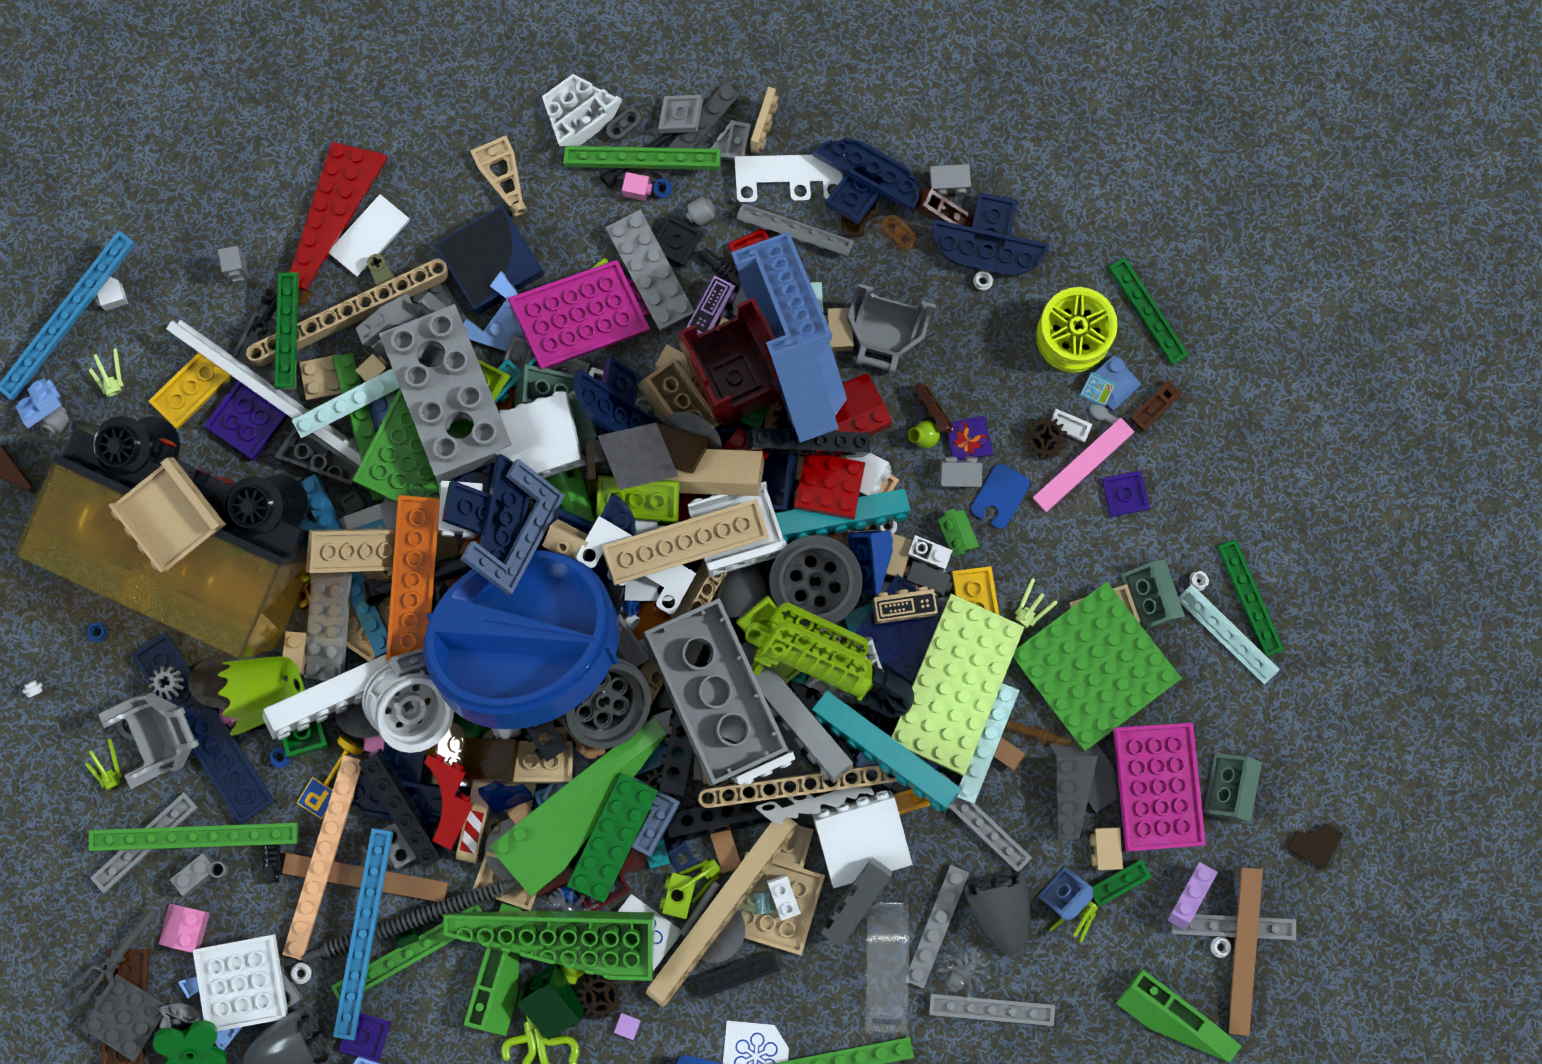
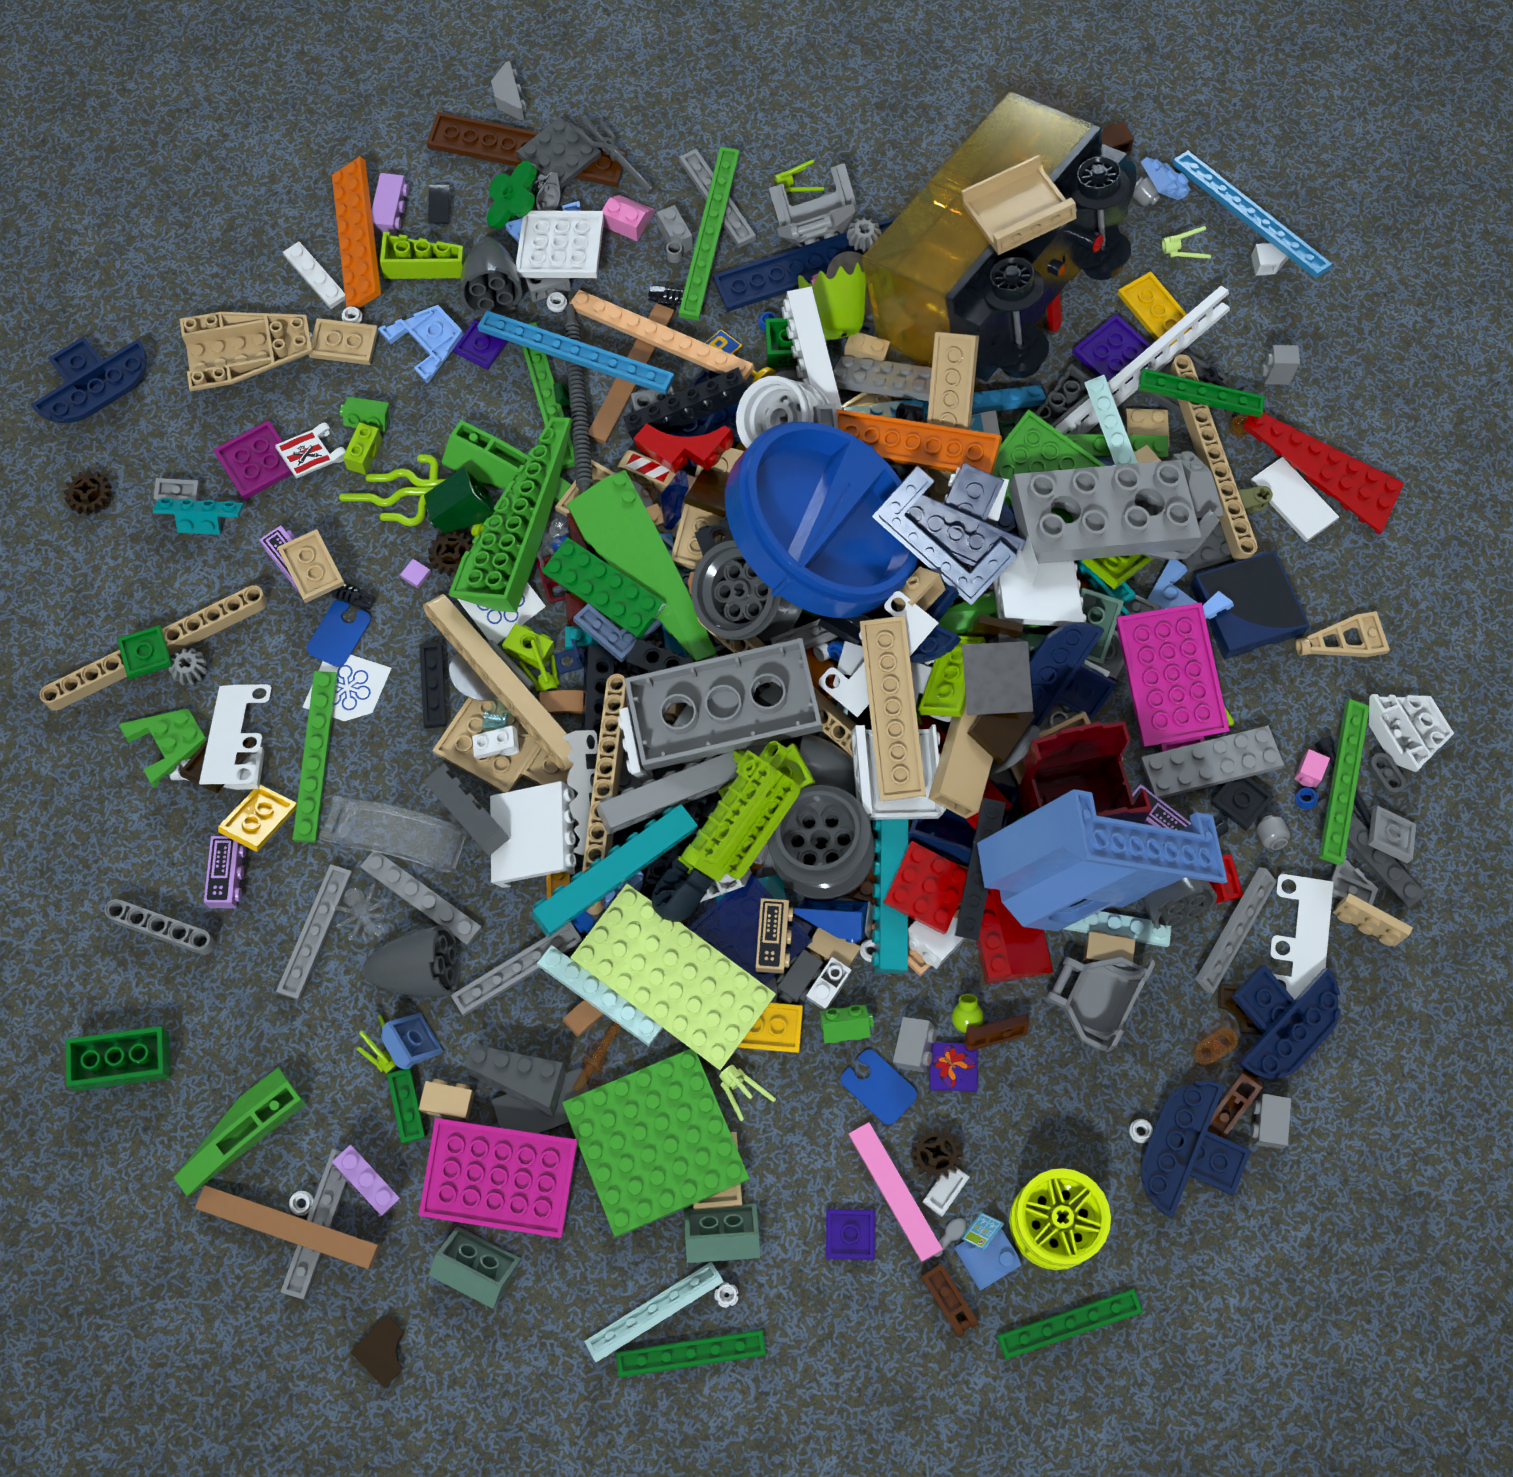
camera: 105 degrees right, 10 degrees down
(32, 688) = (886, 133): white plate -> none

